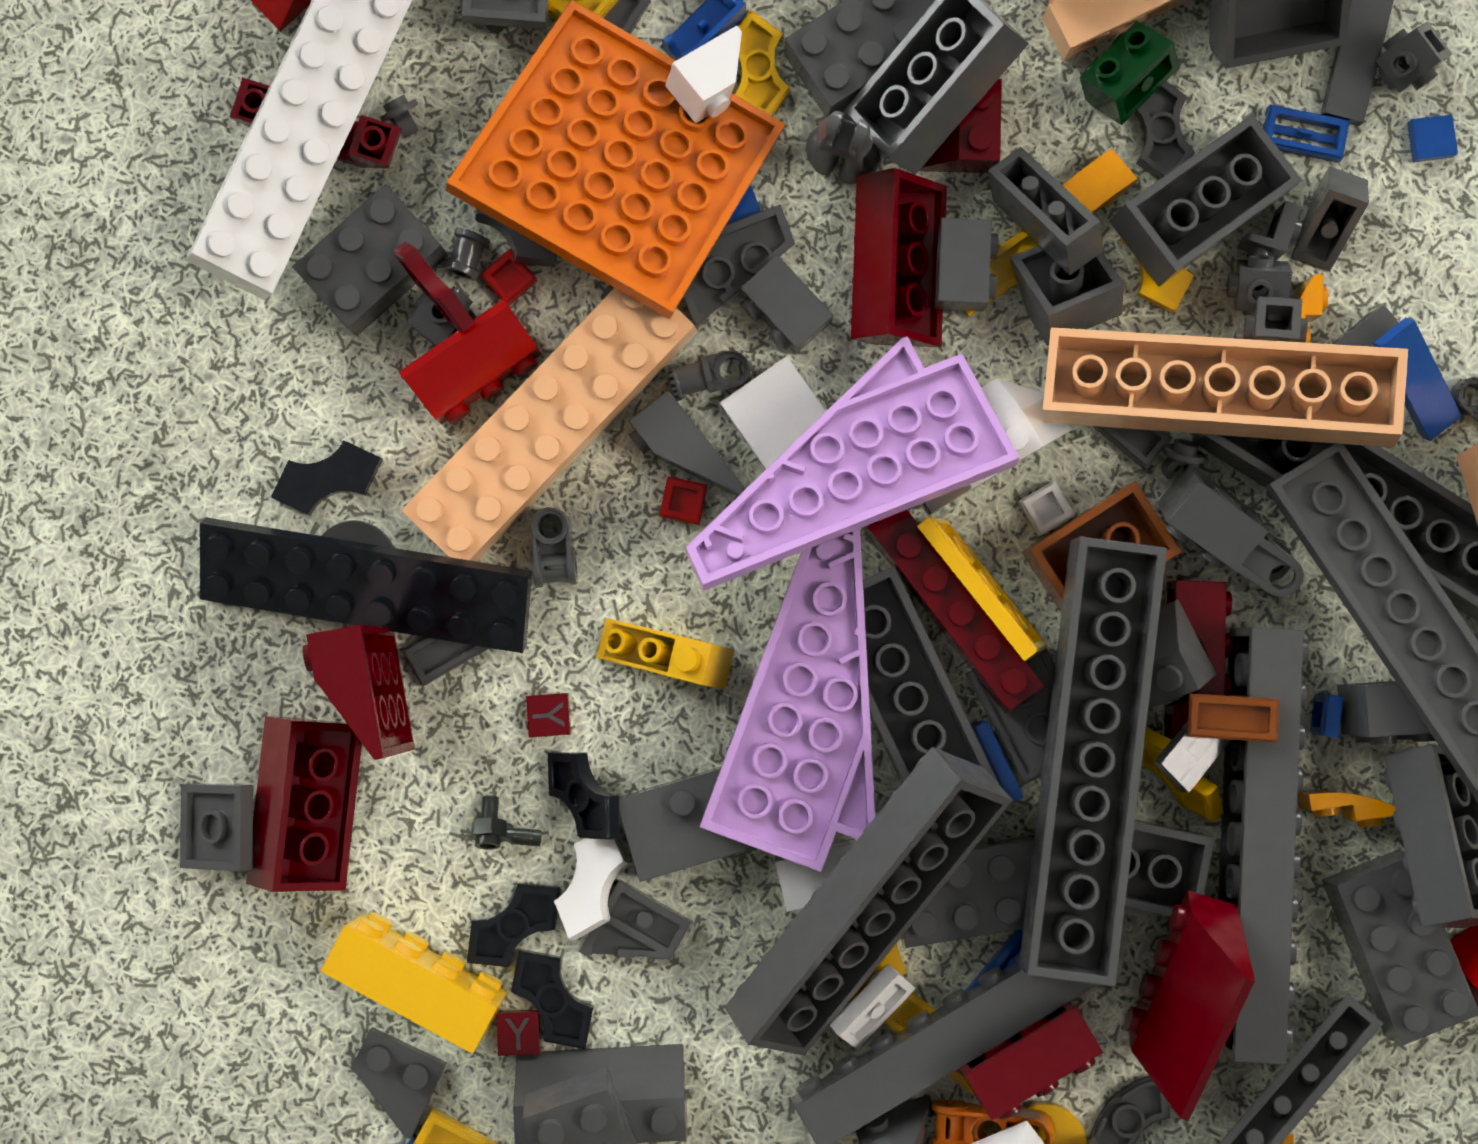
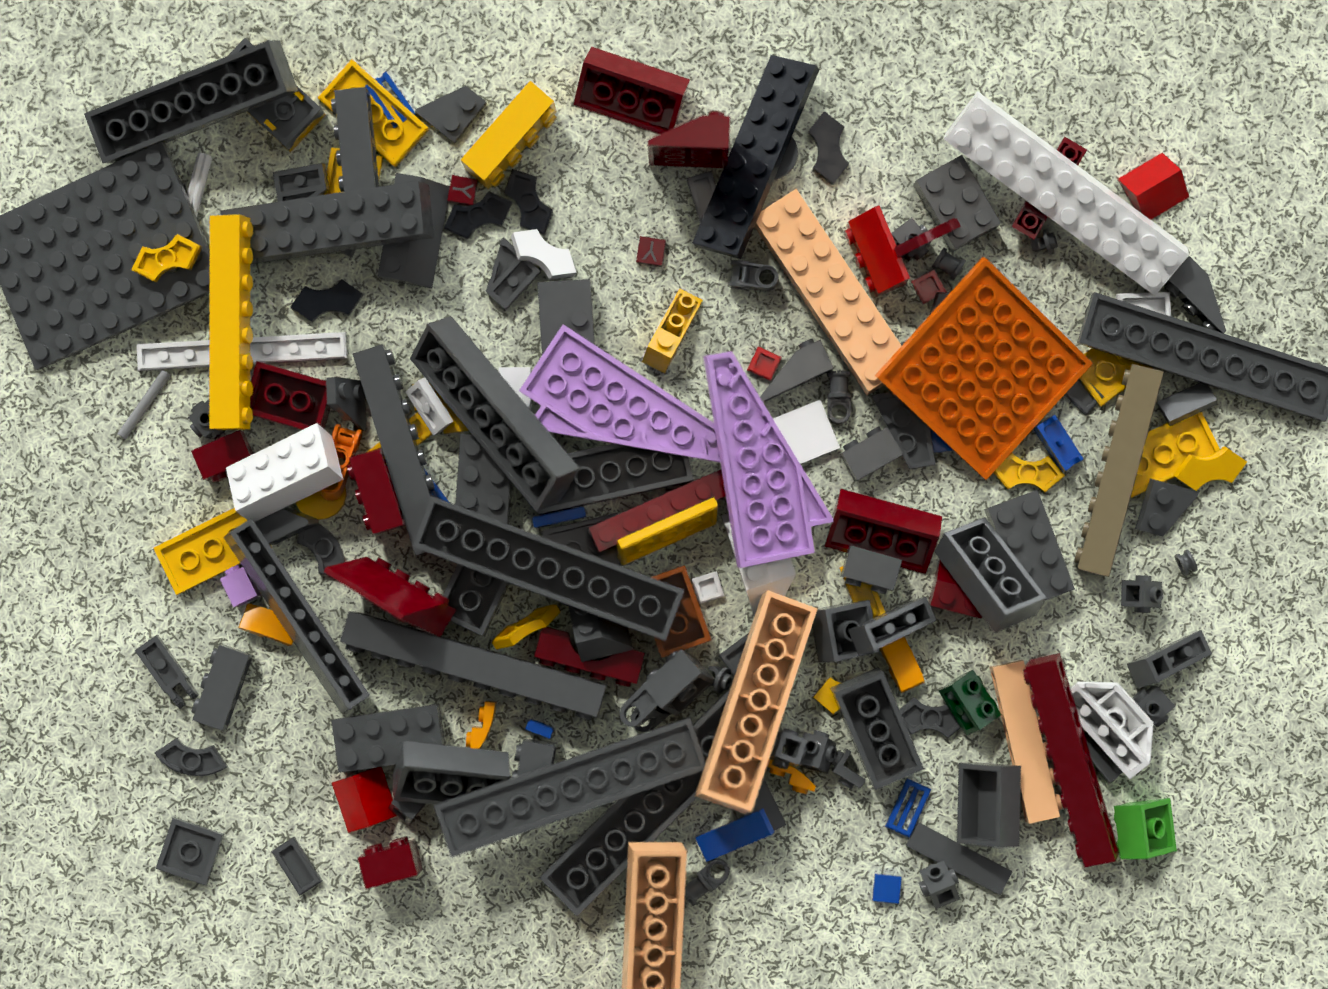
camera: 110 degrees right, 0 degrees up
(216, 827) = (629, 36): dark grey plate -> none
(491, 831) = (588, 200): pearl dark grey piece -> none
(591, 806) = (590, 263): black tile -> none
(707, 76) = (1023, 435): white slope -> none
(842, 139) = (963, 508): dark grey piece -> none
(1188, 758) = (541, 637): tile -> none
(1233, 717) = (553, 660): dark orange tile -> none
(1331, 218) = (849, 808): dark grey slope -> none

